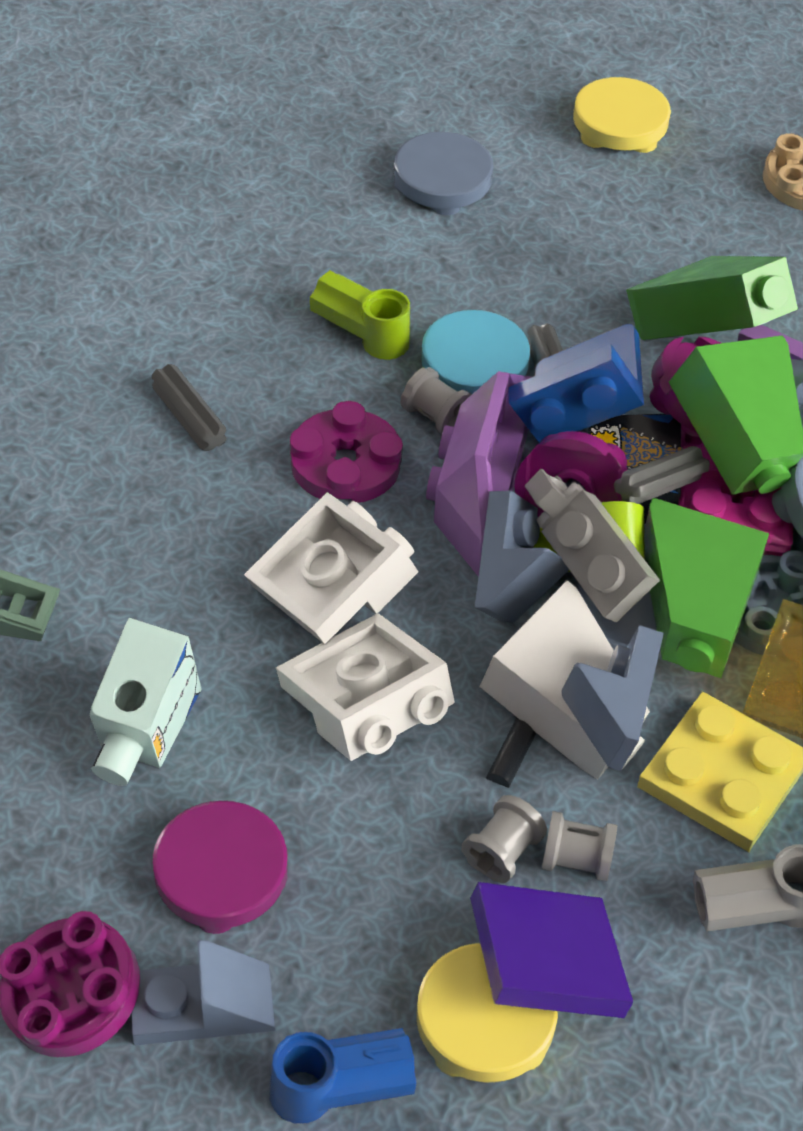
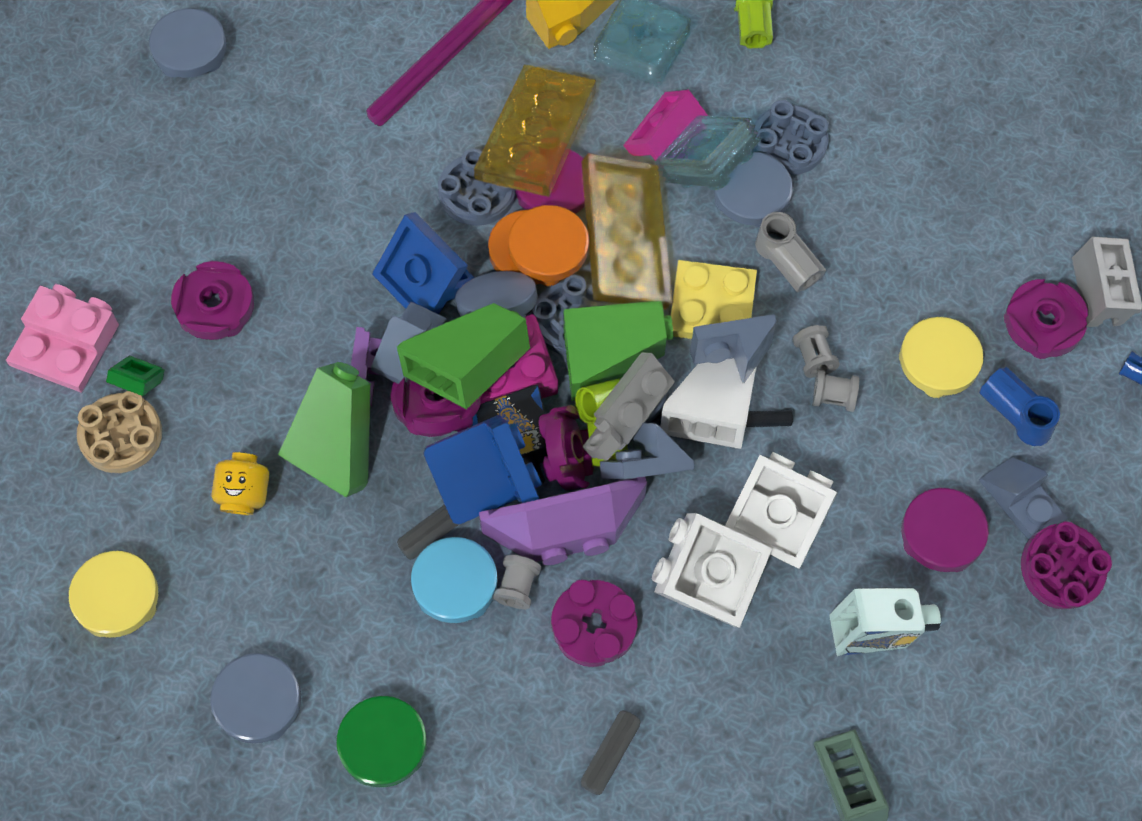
camera: 115 degrees left, 15 degrees up
(332, 237) = (381, 741): none -> green tile
(375, 316) = (455, 677): lime piece -> none
(550, 951) = (895, 334): dark purple tile -> none
(662, 475) = (546, 387): dark grey axle -> none
(693, 226) = (240, 484): none -> yellow head

